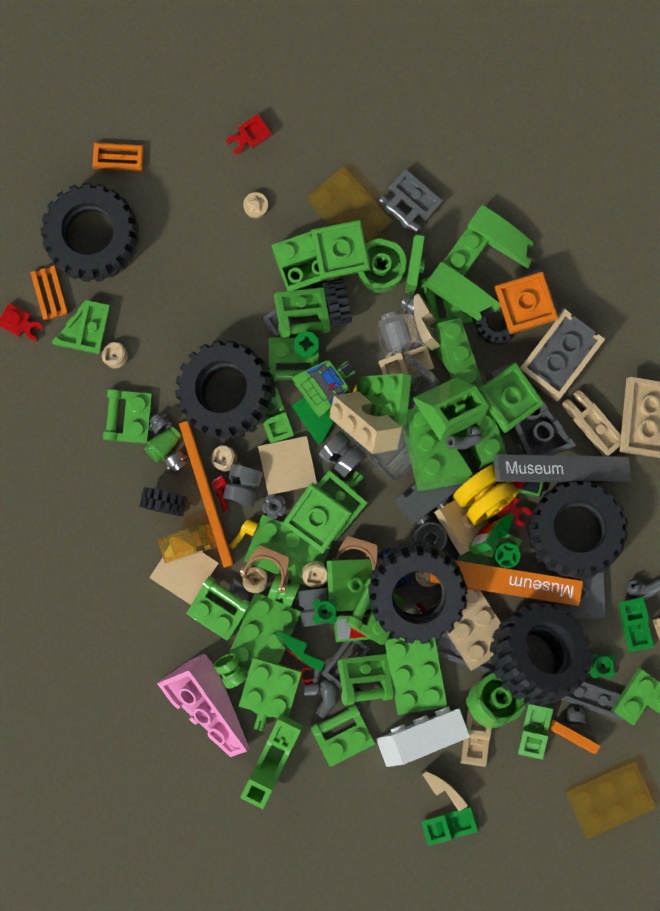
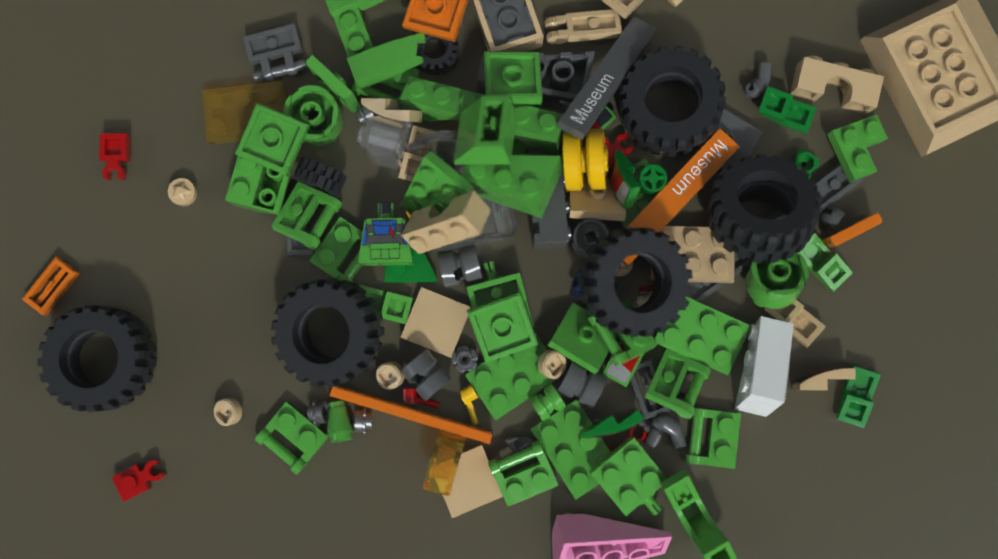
camera: 50 degrees left, 0 degrees up
(44, 272) = (108, 426): orange tile -> none
(85, 329) = (184, 421): bright green wing -> none
(163, 501) = (391, 459): black tyre -> none
(230, 670) = (588, 502): bright green wheel -> none
(255, 580) = (519, 422): tan tile -> none
(281, 561) = (517, 387): medium nougat helmet -> none
(305, 349) = (342, 234): green wheel -> none
(319, 606) = (601, 378): green plate -> none
(354, 543) = (554, 303): medium nougat helmet -> none
(456, 442) = (526, 145): dark grey arm -> none
(610, 800) = (927, 237): clear yellow plate -> none

